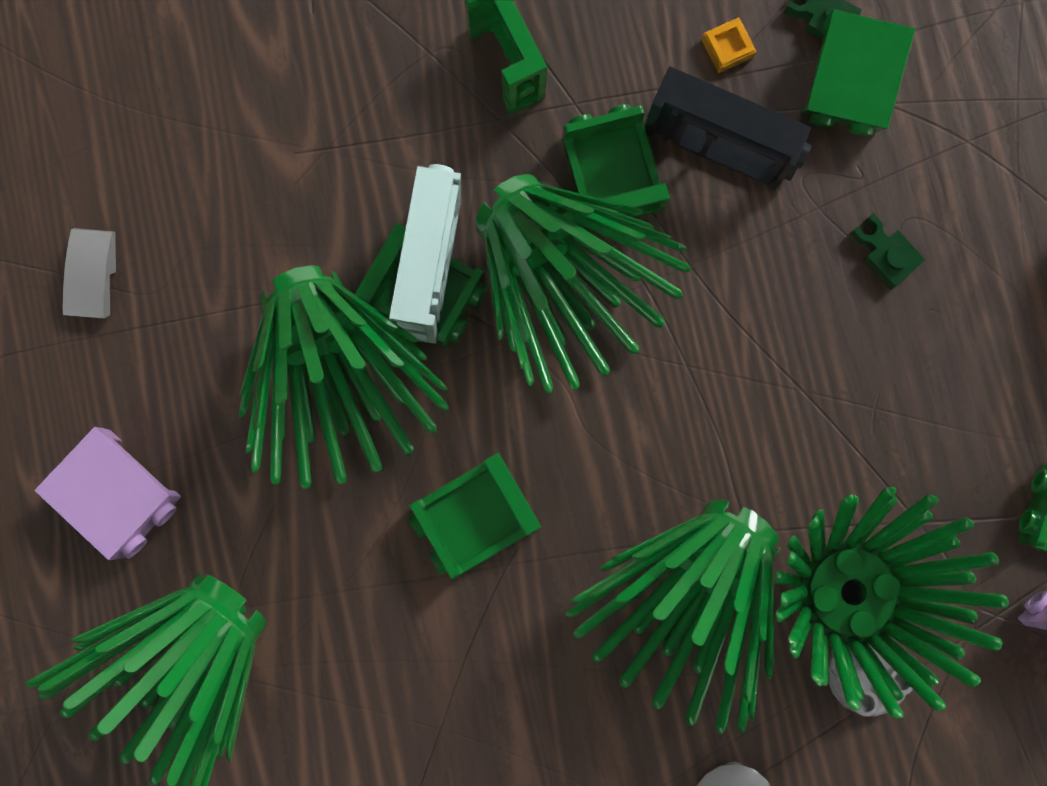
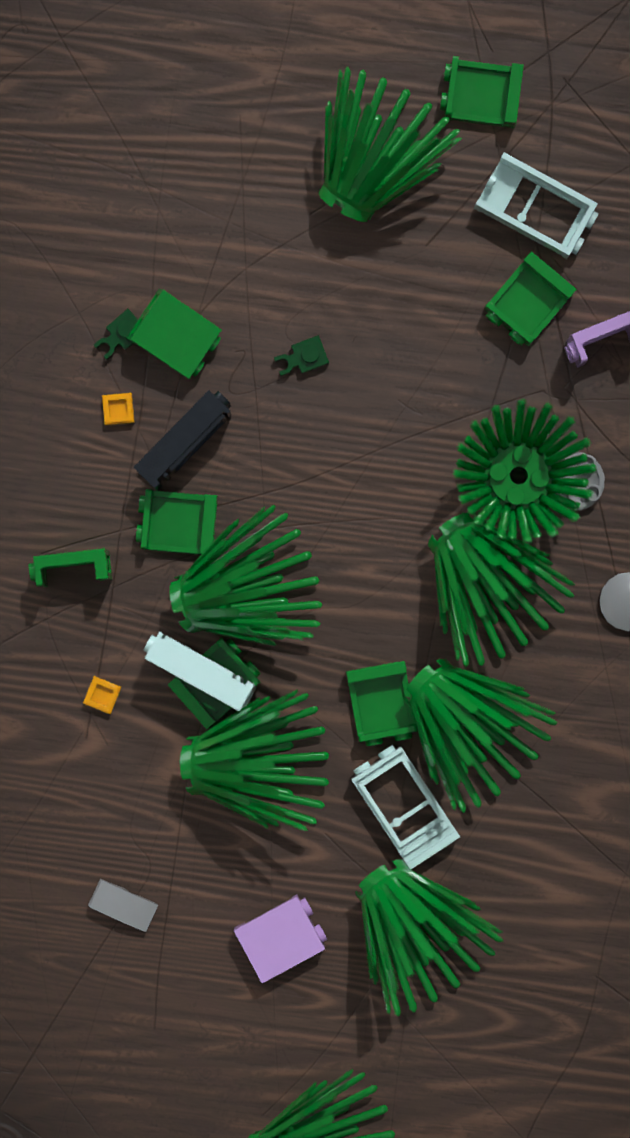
camera: 70 degrees left, 5 degrees up
(307, 647) = (427, 839): none -> light aqua door
(356, 152) = (102, 695): none -> light orange tile
(512, 607) = (457, 697): none -> green plant

